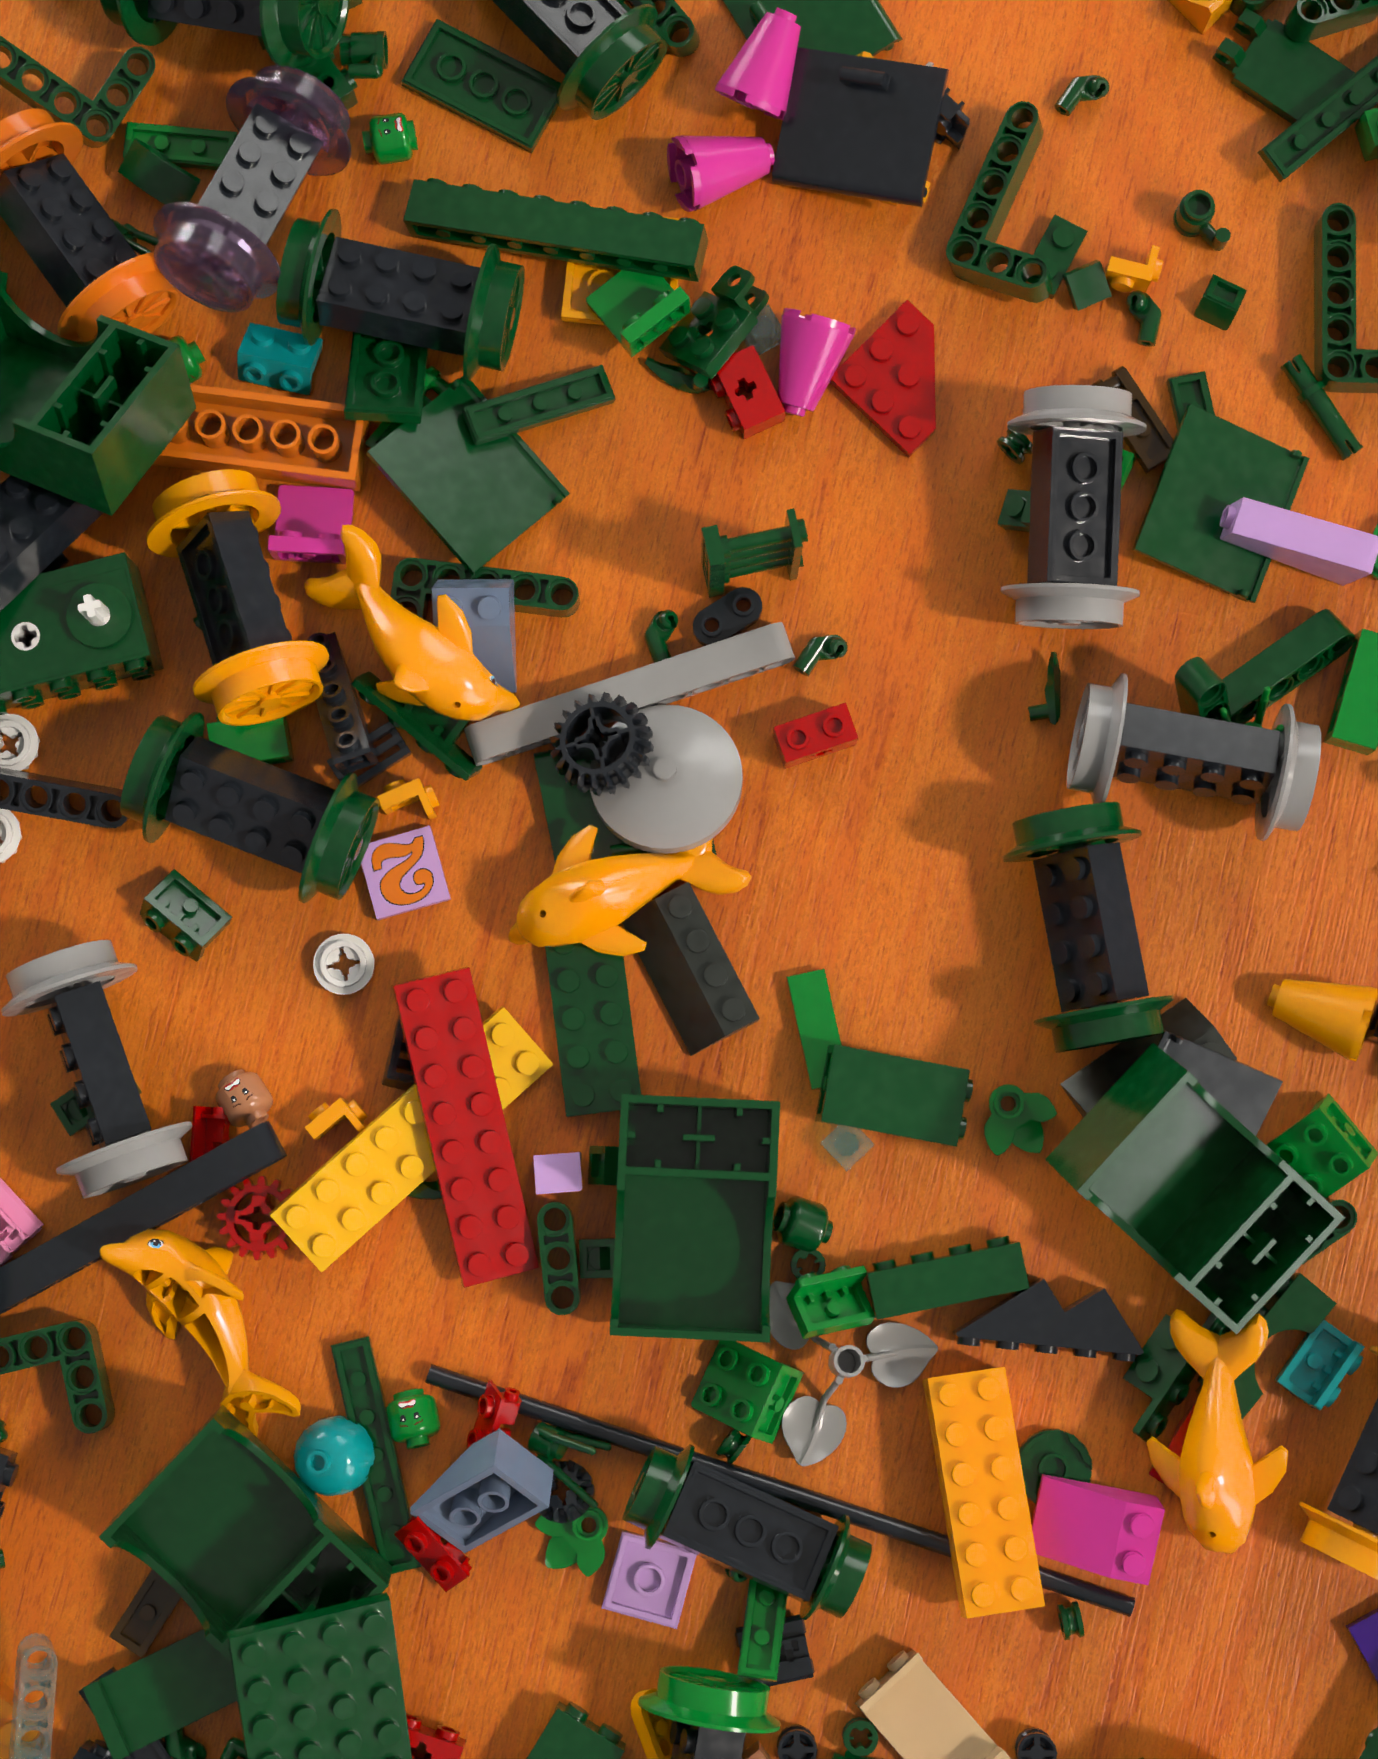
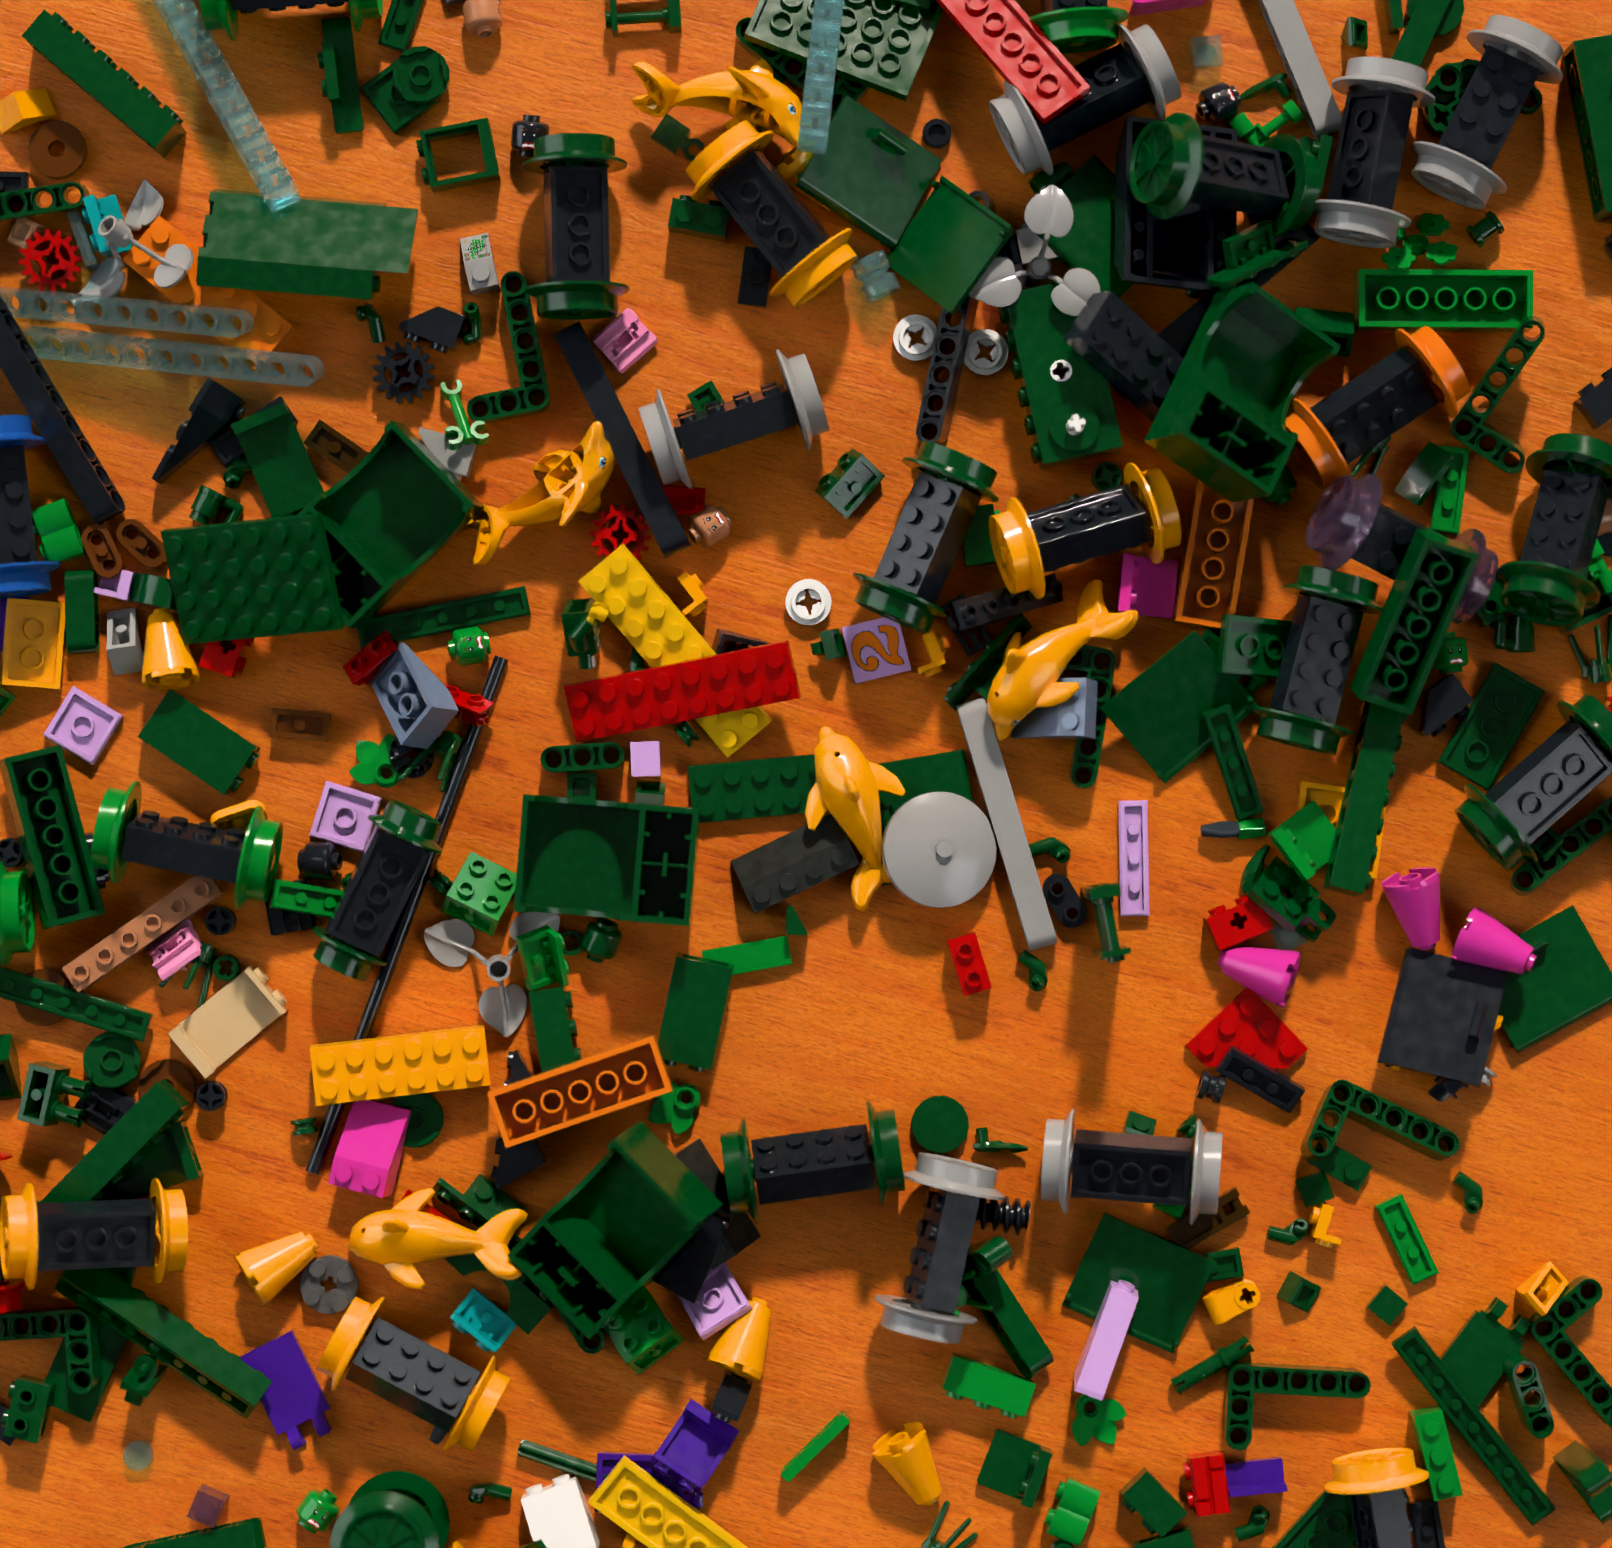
camera: 85 degrees right, 5 degrees up
(59, 1528) = (411, 360): none -> black gear
(121, 1437) = (463, 433): none -> green bar
(149, 1450) = (458, 461): none -> light grey slope
(166, 573) = (1109, 470): none -> dark green wheel
(277, 359) = (1277, 561): teal bracket -> none
(333, 1456) = (443, 586): teal cylinder -> none
(345, 165) = (1414, 621): none -> dark green brick
(385, 1263) = (582, 629): none -> dark green torso
(399, 932) = (830, 644): none -> dark green tile
(454, 144) = (1442, 702): none -> black slope
(522, 1119) = (686, 733): none -> dark green bush
(526, 1647) = (300, 725): none -> reddish brown plate
(572, 747) = (962, 778): black gear -> none
(626, 391) = (1243, 829): none -> piece
(662, 529) = (1133, 858): none -> lavender tile
(710, 1613) = (319, 861): none -> black head
(770, 968) = (793, 923): none -> dark green slope
(847, 1145) = (658, 975): clear light blue plate -> none
(949, 357) = (1260, 1079): none -> black tile
(962, 420) = (1210, 1087): none -> black wheel
(1008, 1244) = (580, 1091): none -> orange brick
(1026, 768) = (940, 1124): none -> dark green tile
(1142, 673) = (1003, 1214): none -> black piece
(1145, 169) = (1406, 1239): none -> green tile
(1194, 217) = (1366, 1275): dark green piece -> none
(1232, 191) = (1387, 1304): none -> dark green tile
(1239, 388) = (1226, 1301): none -> light orange piece
(1259, 1652) = (276, 1263): none -> light orange cone
(1280, 1049) = (718, 1302): none -> lavender tile
(1301, 1564) = (343, 1275): none -> flat silver plate

